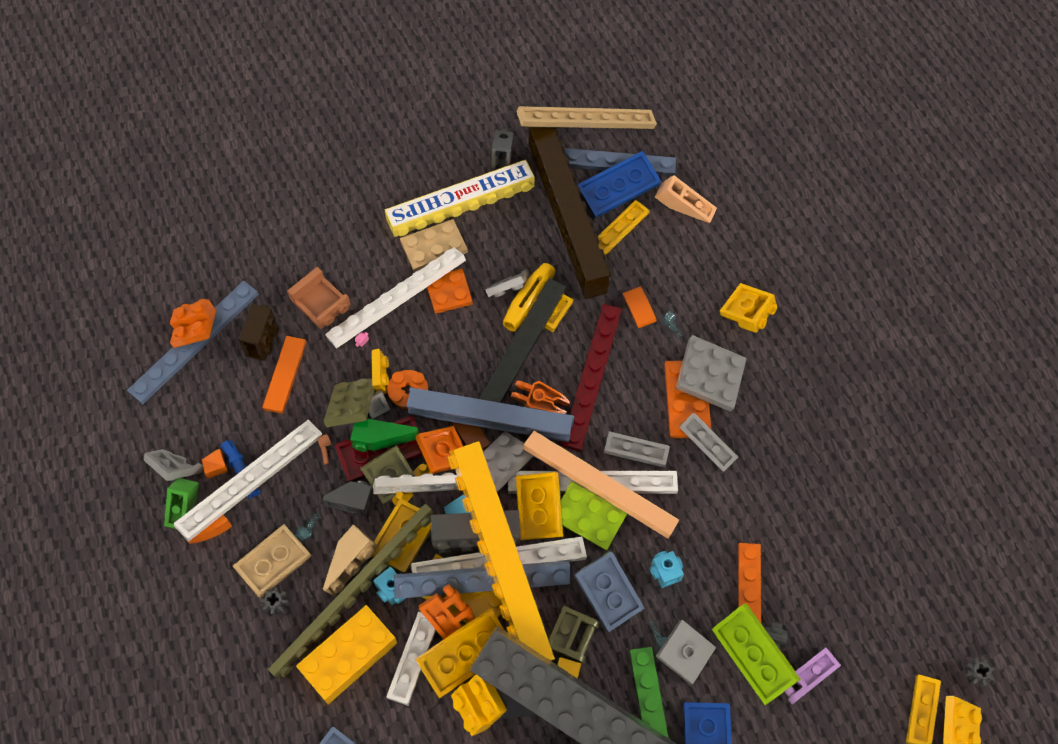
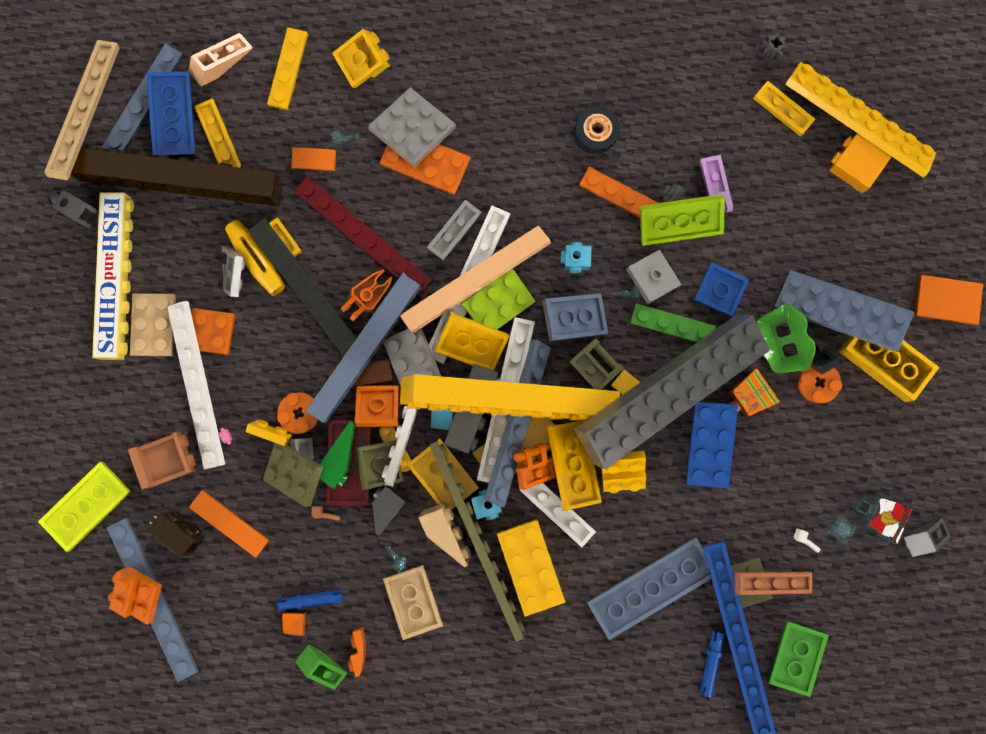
camera: 65 degrees left, 20 degrees up
(171, 465) = (278, 665): light grey wing -> none
(247, 480) = (328, 597): white plate -> none
(255, 257) = (84, 506): none -> neon yellow plate
(270, 597) = (451, 608): dark grey gear -> none
(707, 256) = (287, 68): none -> yellow plate
(708, 441) = (477, 163): light grey plate -> none
(807, 527) = (602, 119): none -> black wheel

